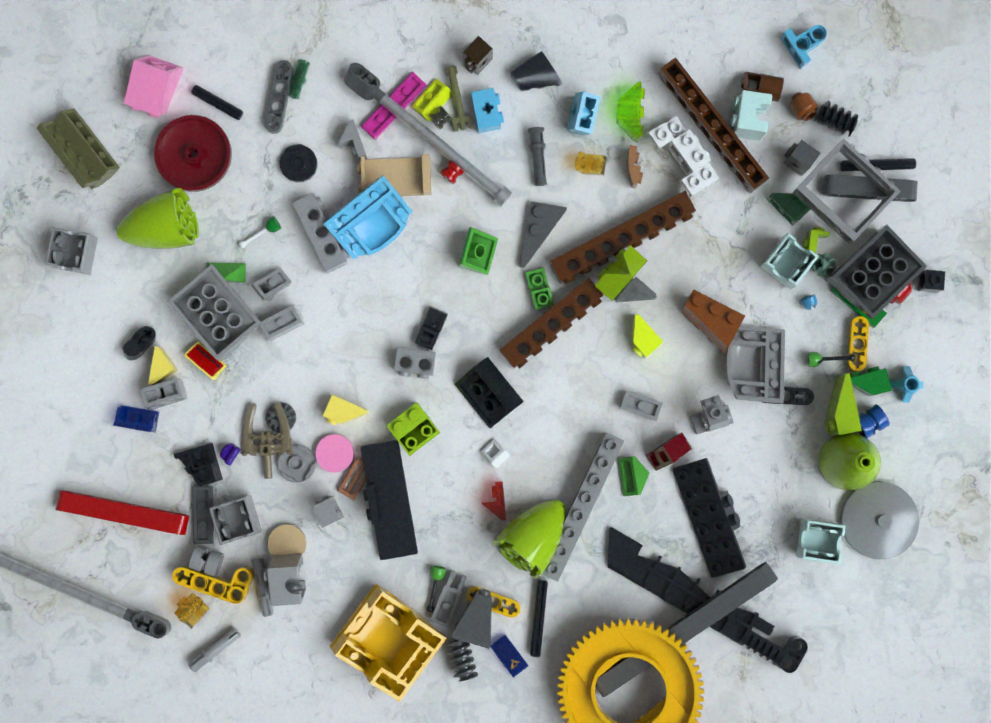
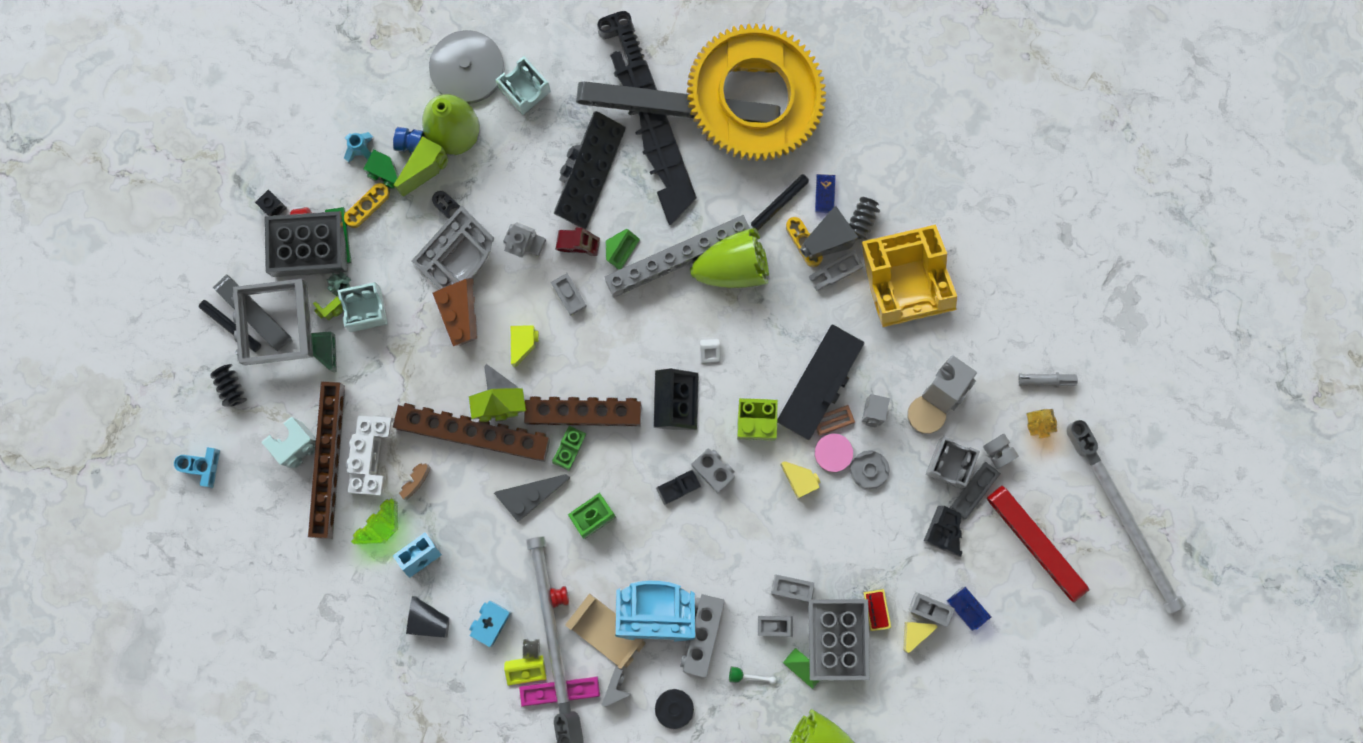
camera: 140 degrees left, 5 degrees down
(139, 343) = (909, 668): black piece -> none
(210, 582) = (1015, 428): yellow beam -> none
(229, 453) = (916, 520): dark purple plate -> none
(259, 566) = (972, 396): light grey axle -> none
(266, 447) = (883, 500): dark tan bar -> none
(274, 424) = (844, 516): dark grey gear -> none
(436, 573) = (829, 297): hinge -> none
(451, 71) = (515, 634): olive hinge -> none
(477, 55) = (460, 672): dark brown brick -> none
(497, 507) = (741, 309): clear red slope -> none
(537, 147) = (475, 560): dark grey pin -> none
(590, 164) = (446, 511): clear yellow bracket -> none
(765, 84) = (258, 457): reddish brown piece -> none
(801, 157) = (282, 377): dark grey brick -> none
(803, 106) = (245, 417): dark orange head -> none
(808, 301) = (374, 267): dark azure hinge -> none
(816, 359) = (408, 219): hinge -> none

